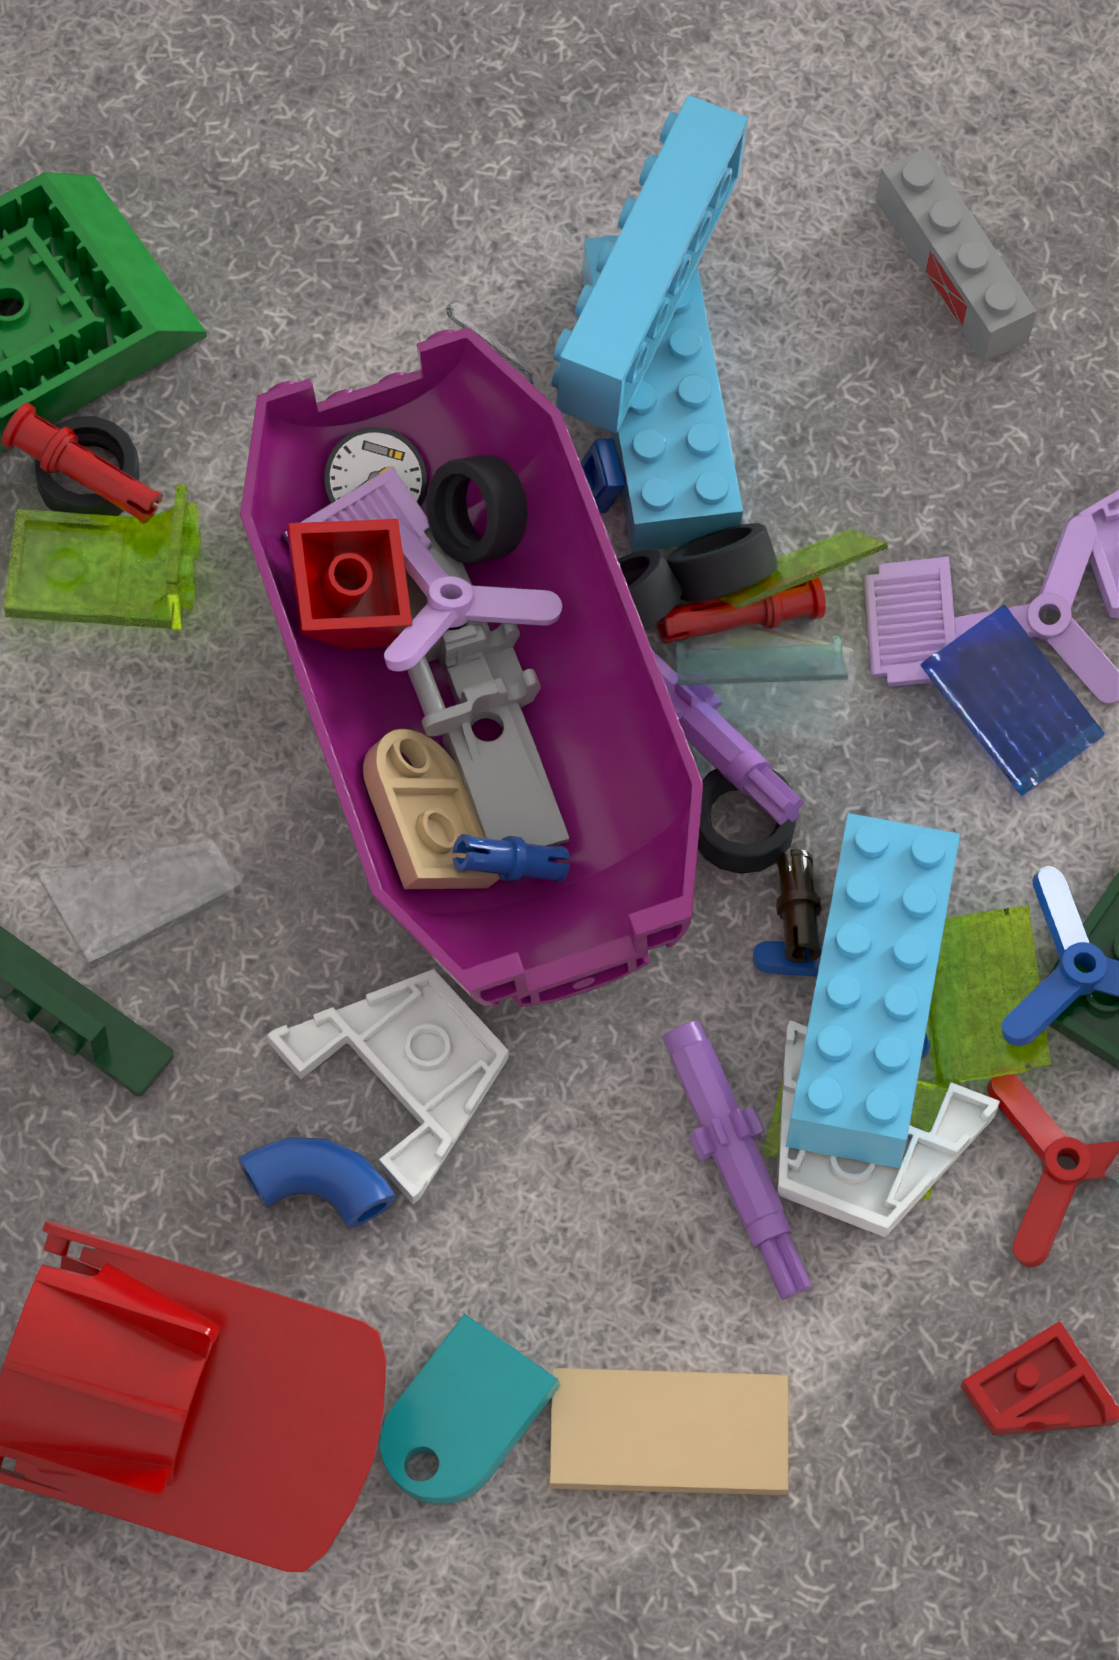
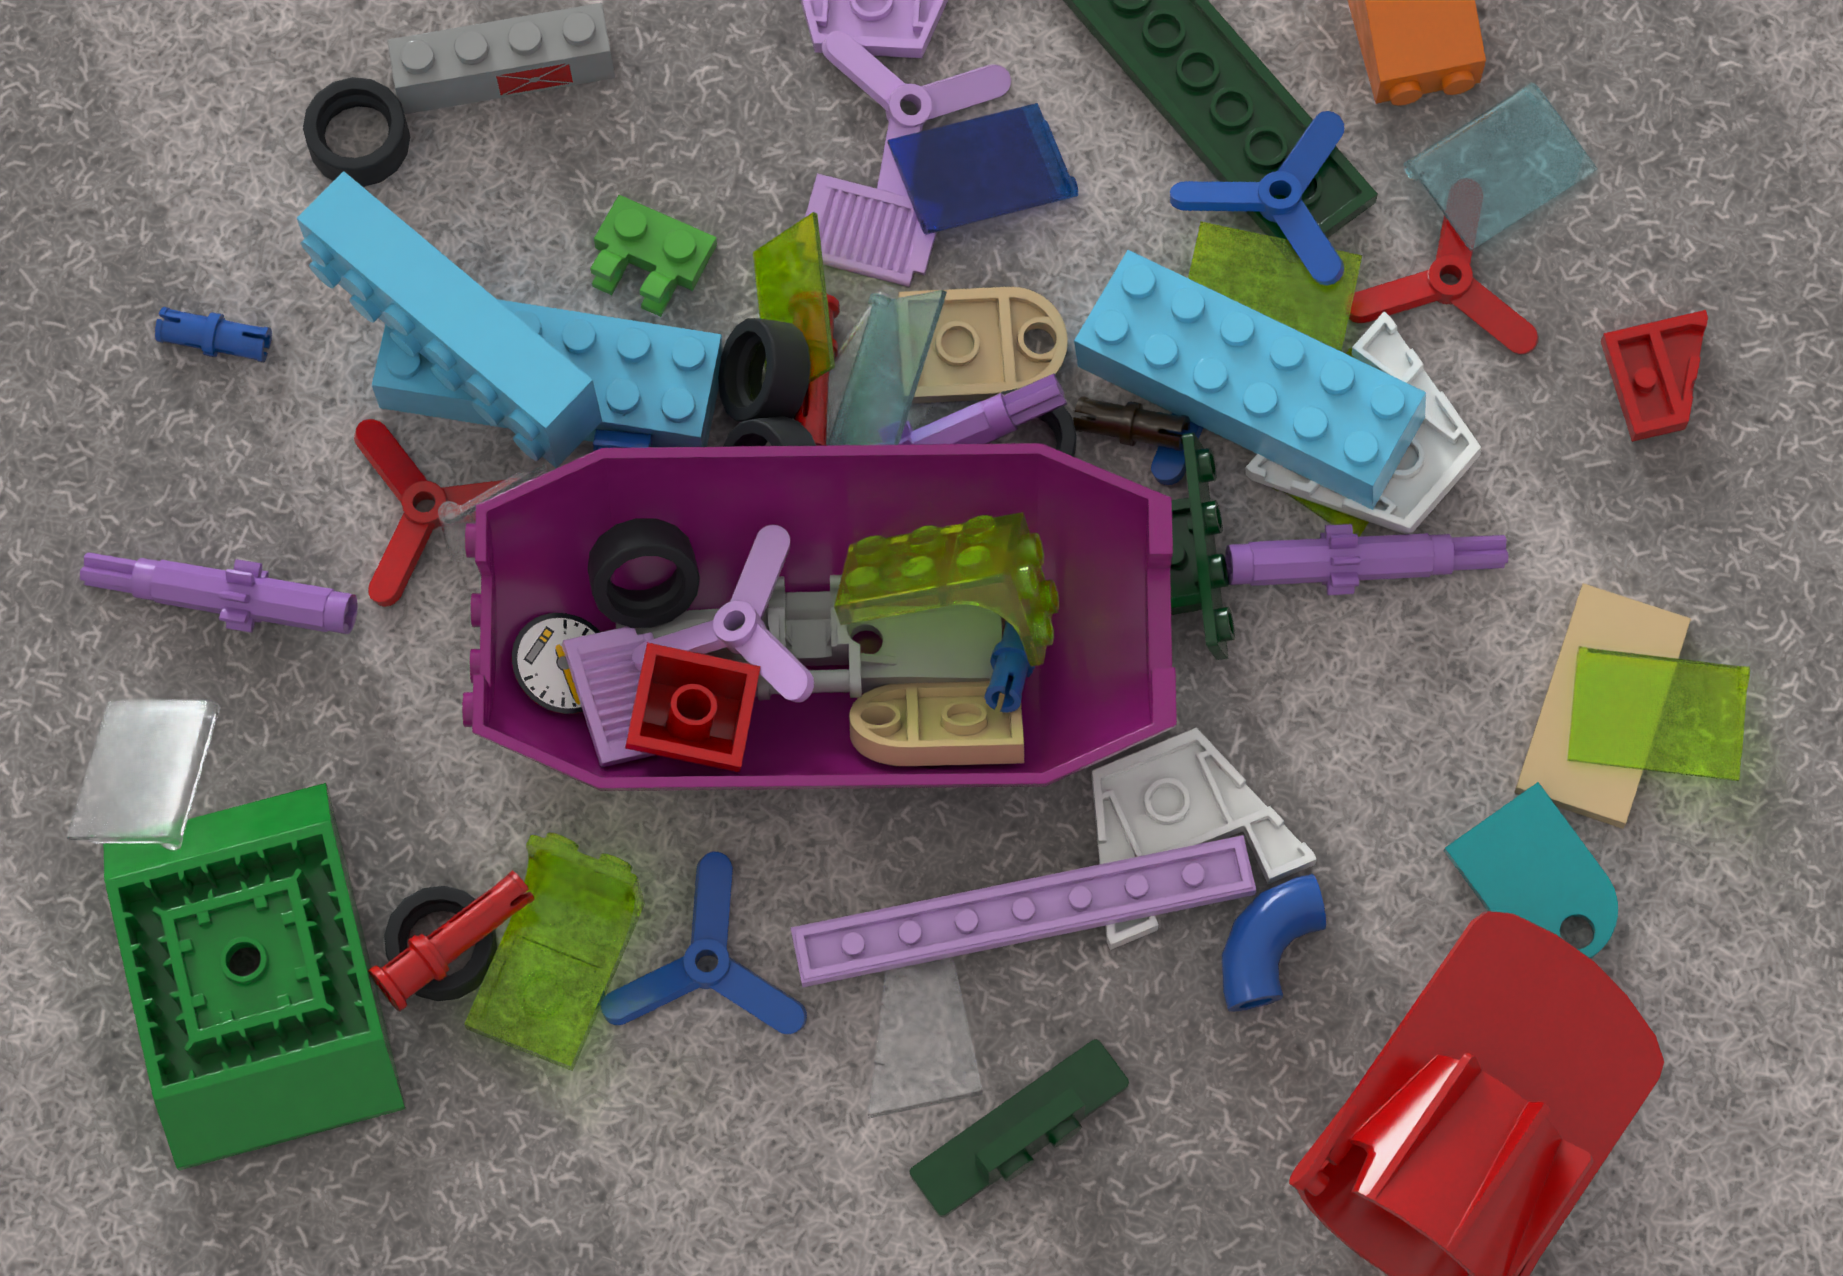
camera: 65 degrees left, 5 degrees up
(135, 717) = (728, 978): none -> blue piece
(164, 182) = (144, 772): none -> clear piece
(273, 948) = (1023, 911): none -> lavender tile
(354, 205) = (236, 594): none -> medium lavender piece
(509, 316) = (414, 526): none -> red piece
(575, 782) = (969, 563): none -> clear neon green bracket
(598, 112) = (213, 334): none -> blue pin
(674, 1482) = (1658, 713): none -> clear neon green piece
(684, 991) = (1195, 567): none -> dark green bracket
(827, 445) = (652, 242): none -> bright green plate
(829, 745) = (982, 345): none -> tan tile
(839, 127) = (346, 95): none -> black tyre

